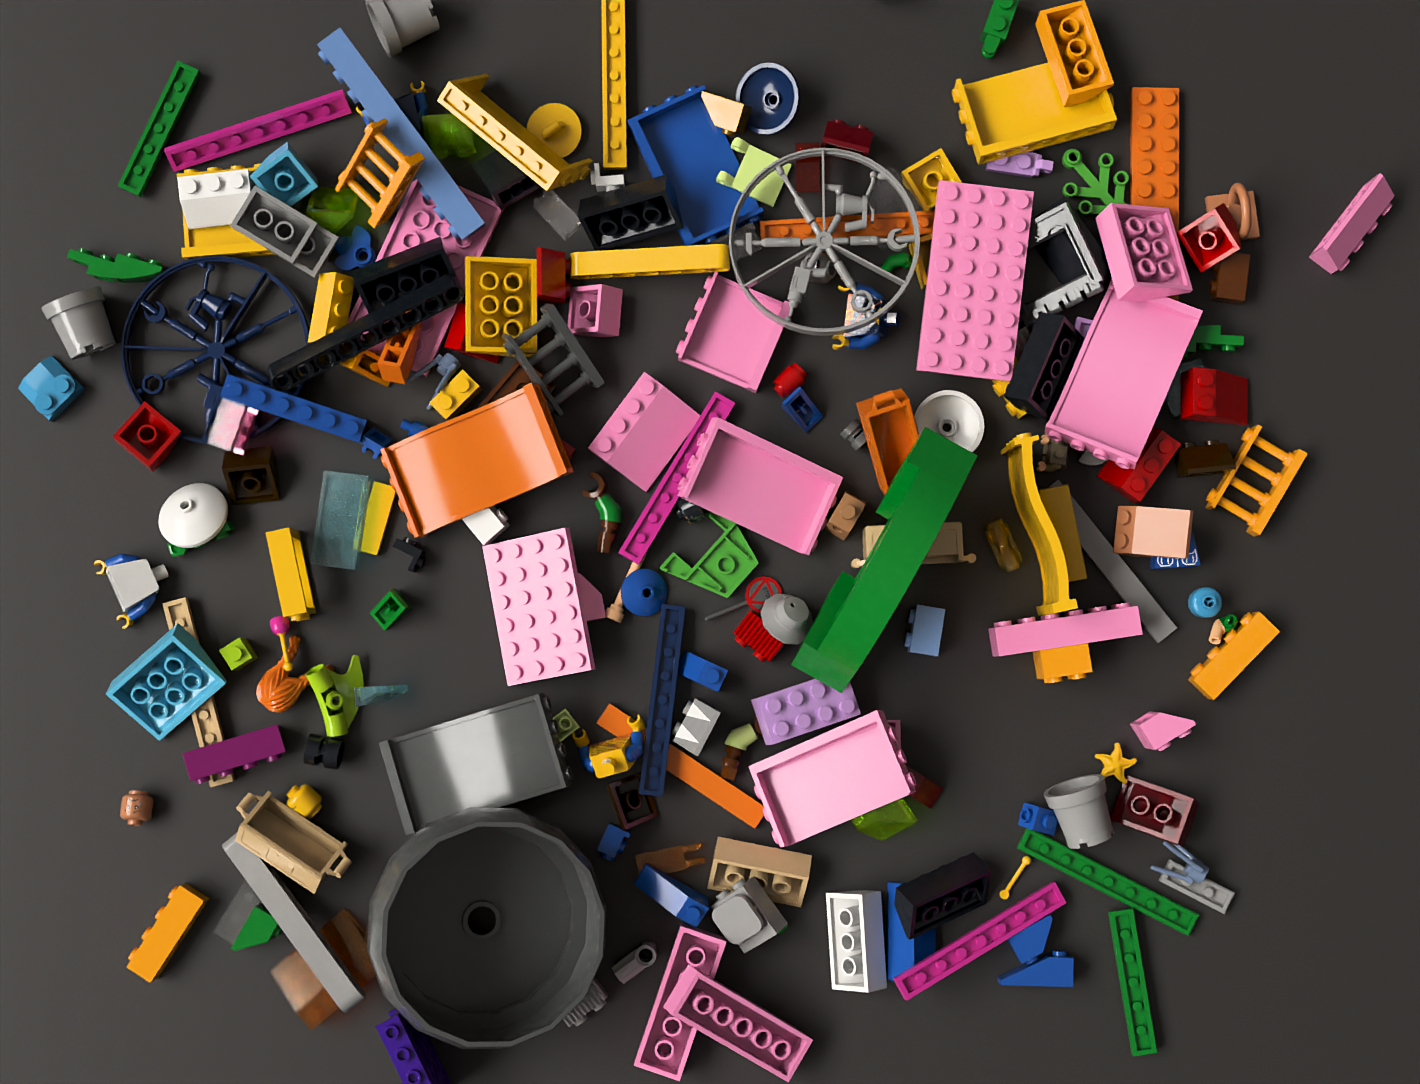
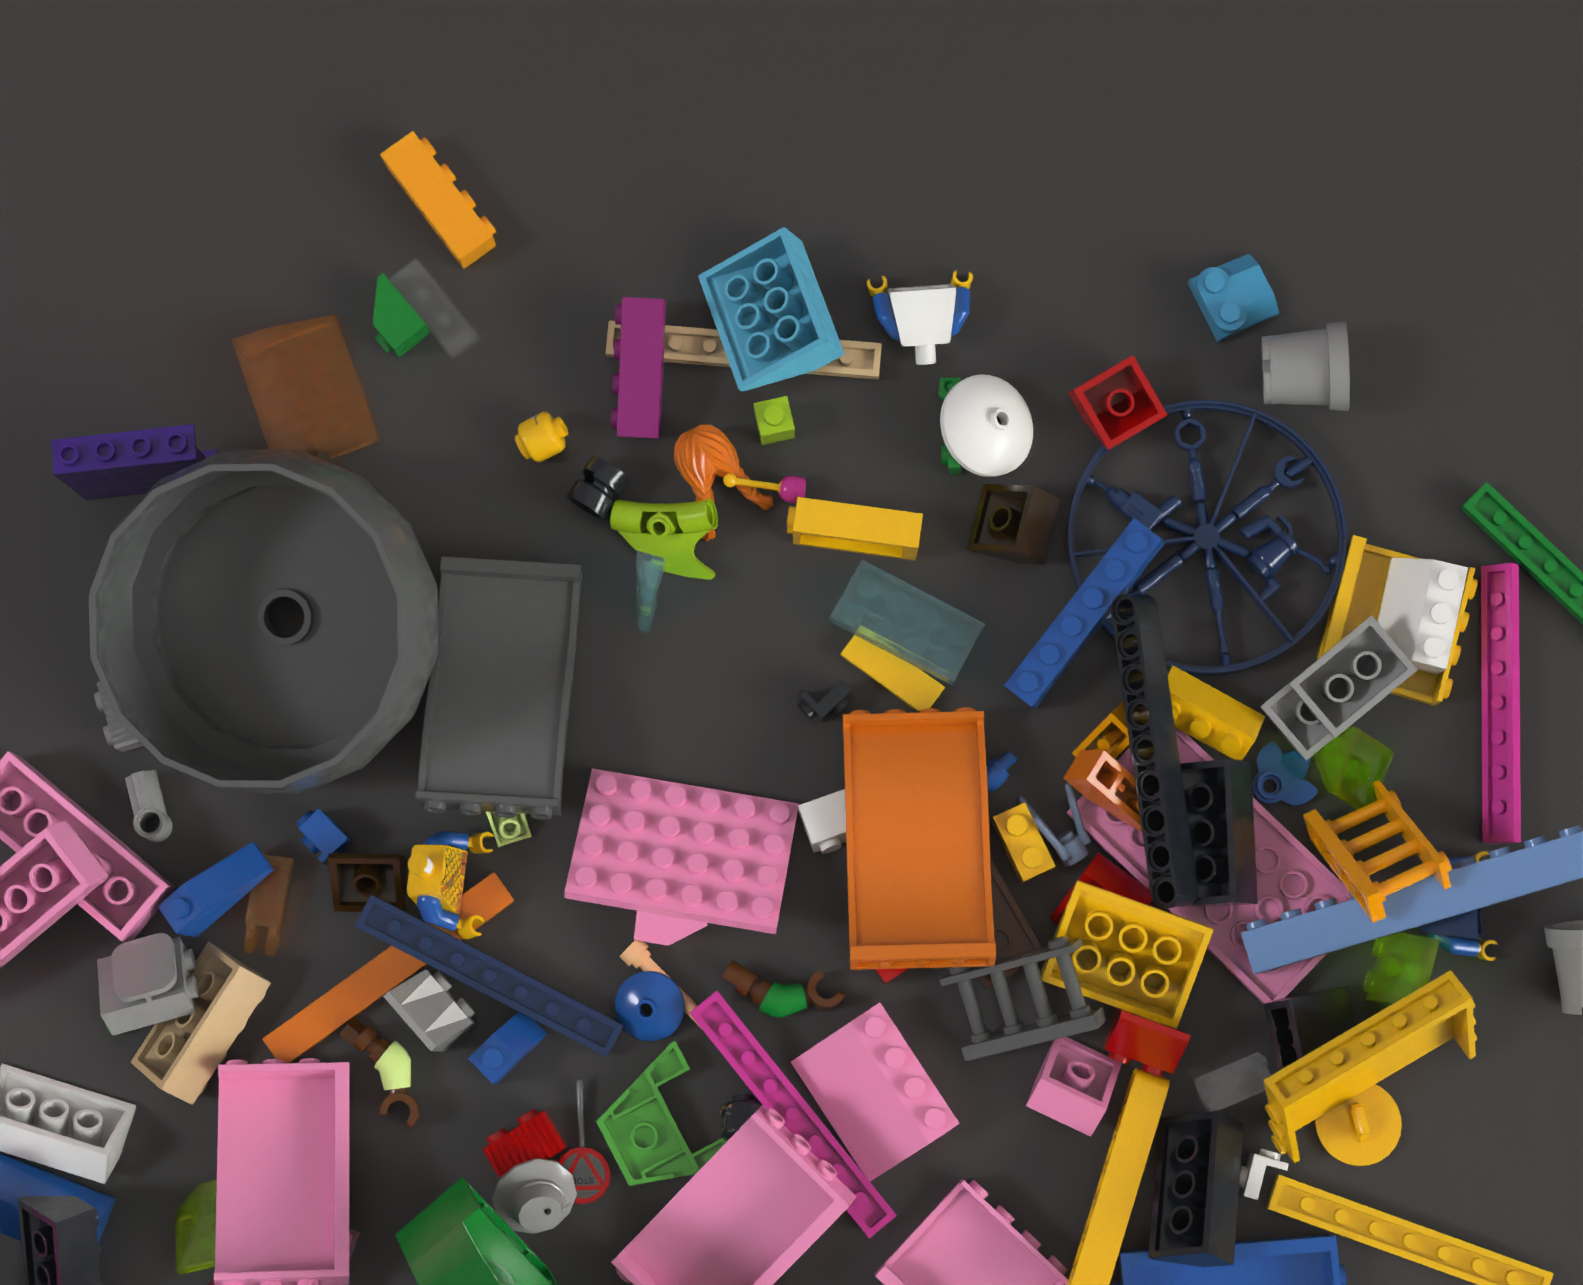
camera: 110 degrees right, 5 degrees down
(125, 269) = (1364, 451): green slope -> none
(136, 807) = (619, 216): nougat head -> none
(232, 426) = (1088, 520): clear pink brick -> none
(285, 176) = (1419, 717): medium azure slope -> none
(290, 842) = (491, 400): tan container -> none
(297, 926) = (384, 368): light grey beam -> none
(375, 441) = (999, 709): blue tile -> none
(390, 609) = (758, 646): green slope -> none
(802, 709) = (396, 1168): lavender brick -> none

